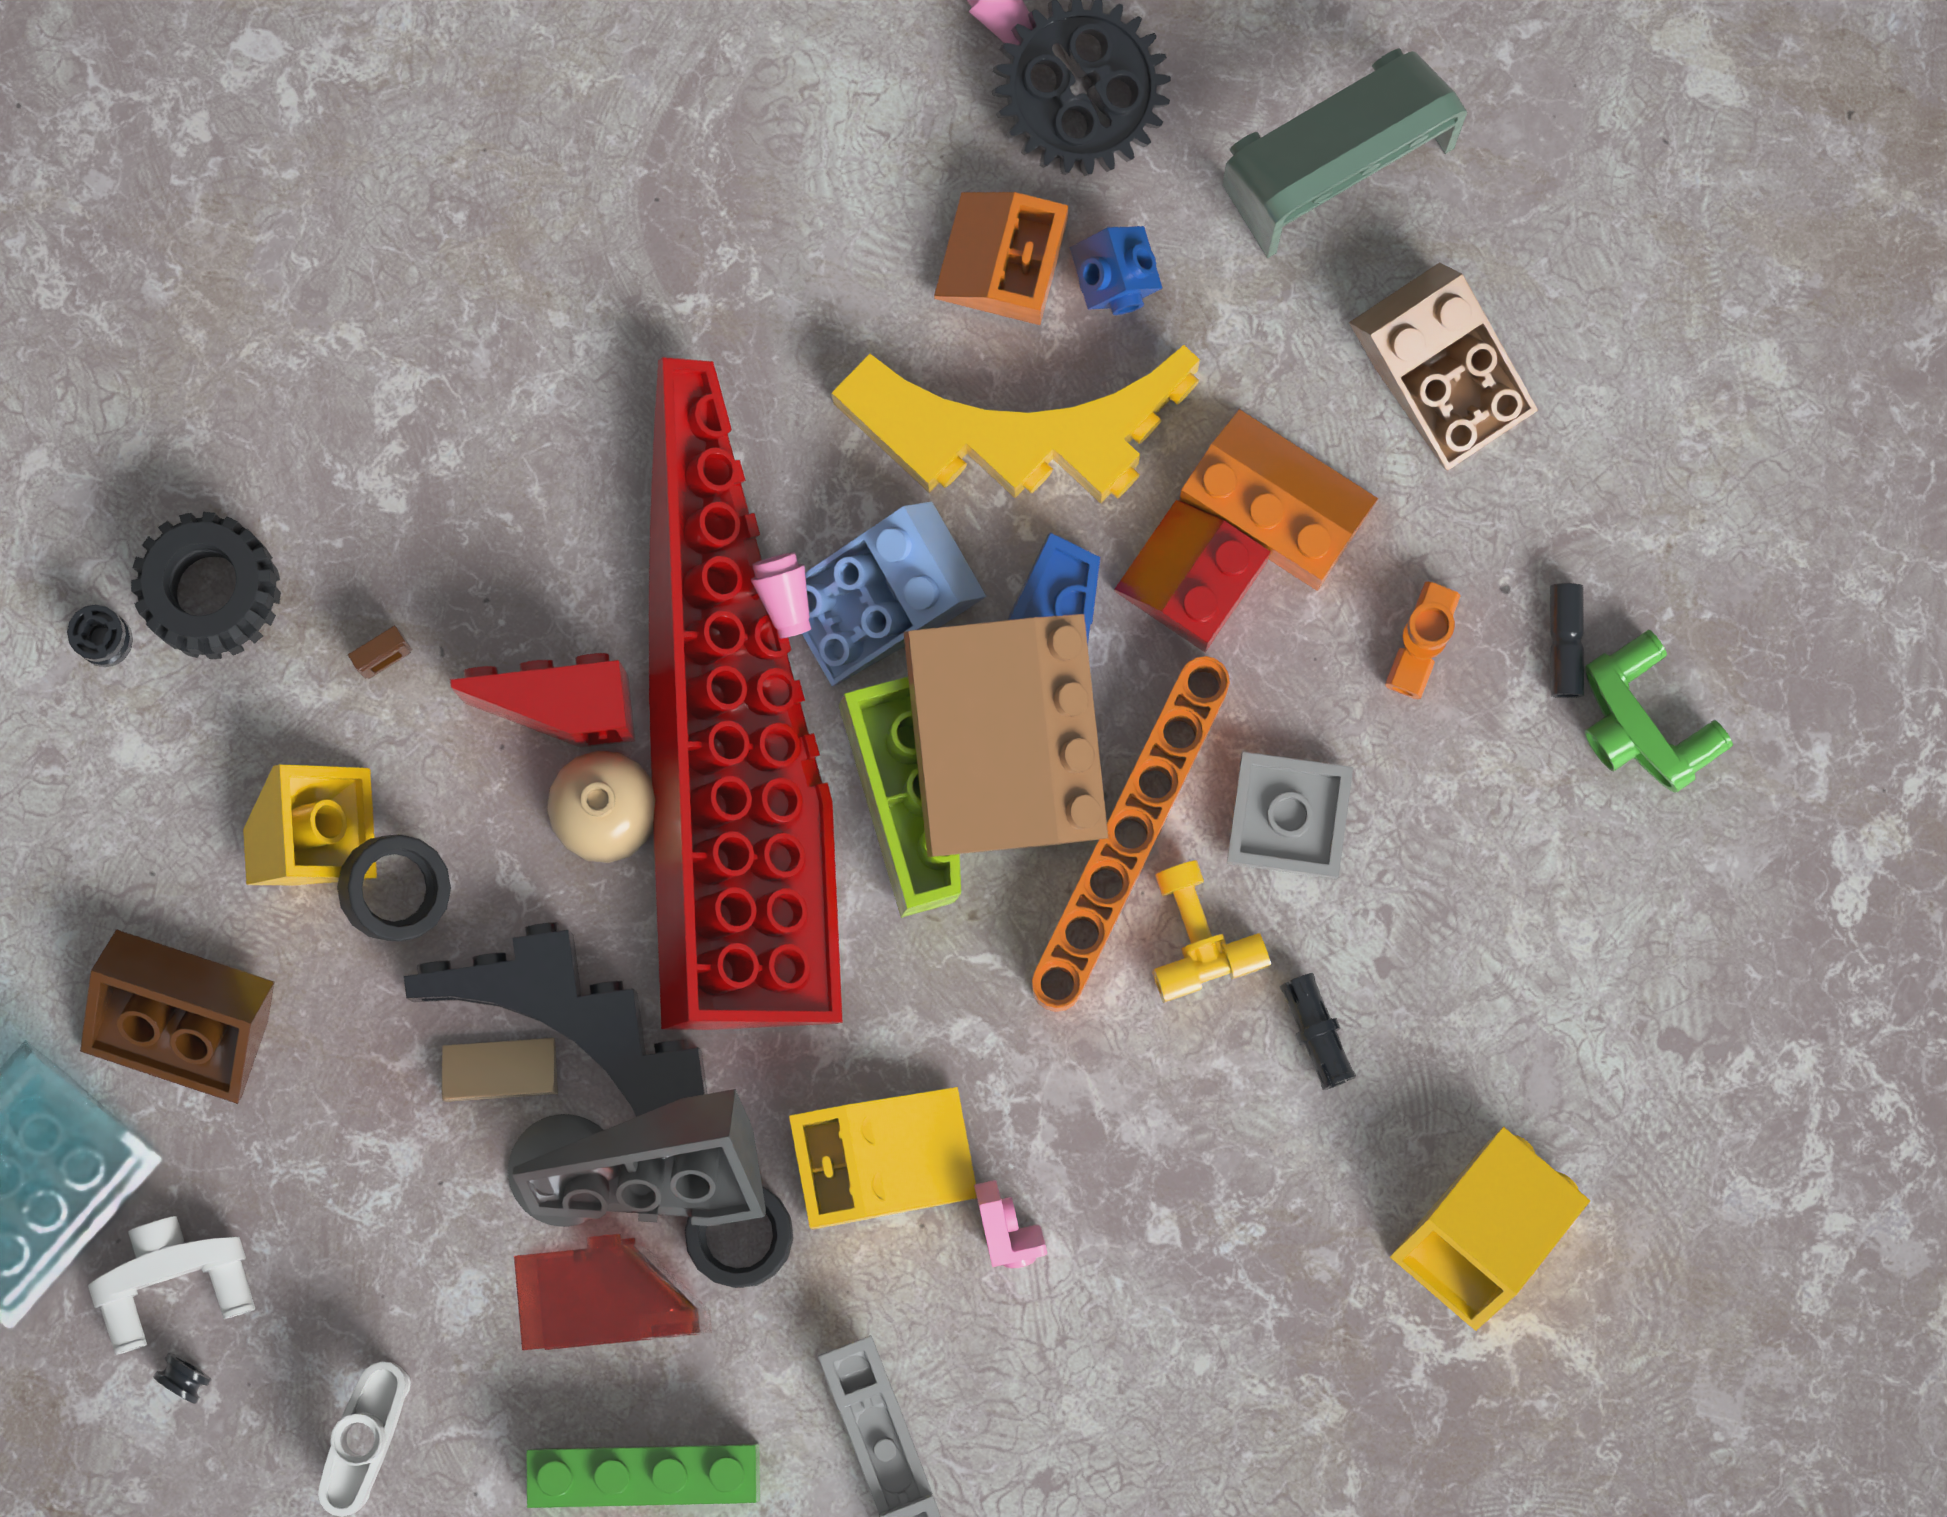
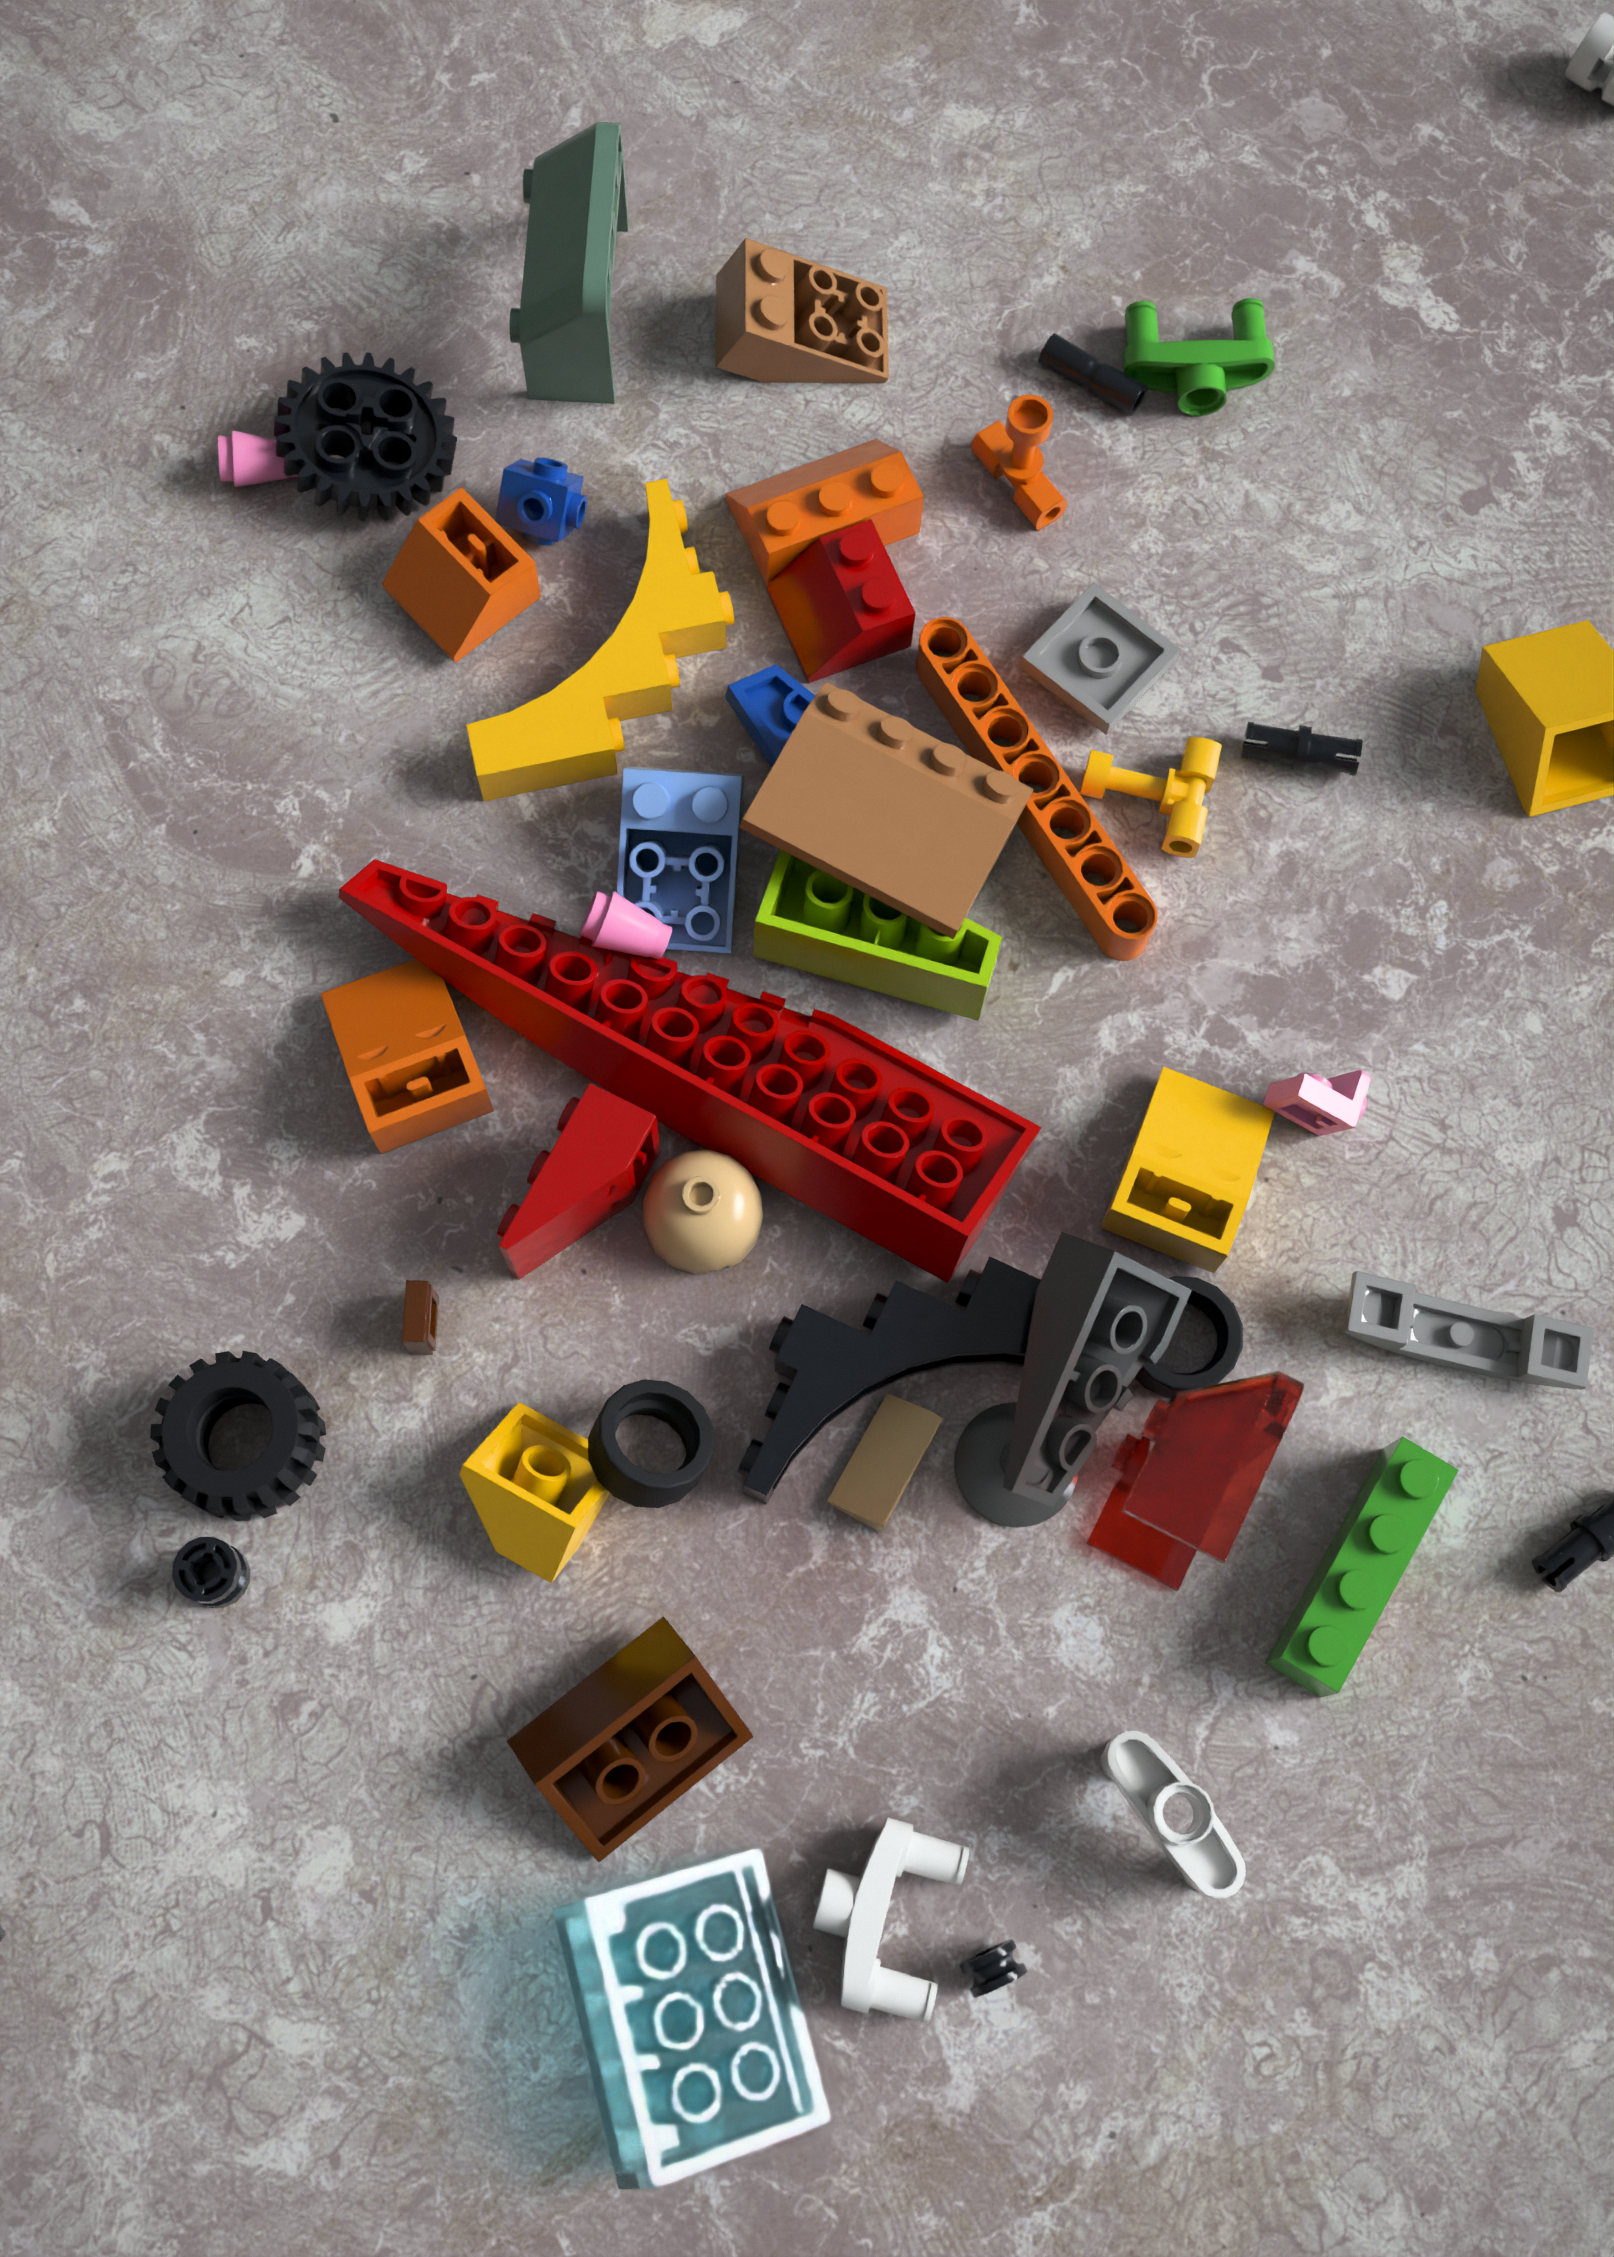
camera: 65 degrees left, 10 degrees down
(575, 494) = (405, 1054): none -> orange slope

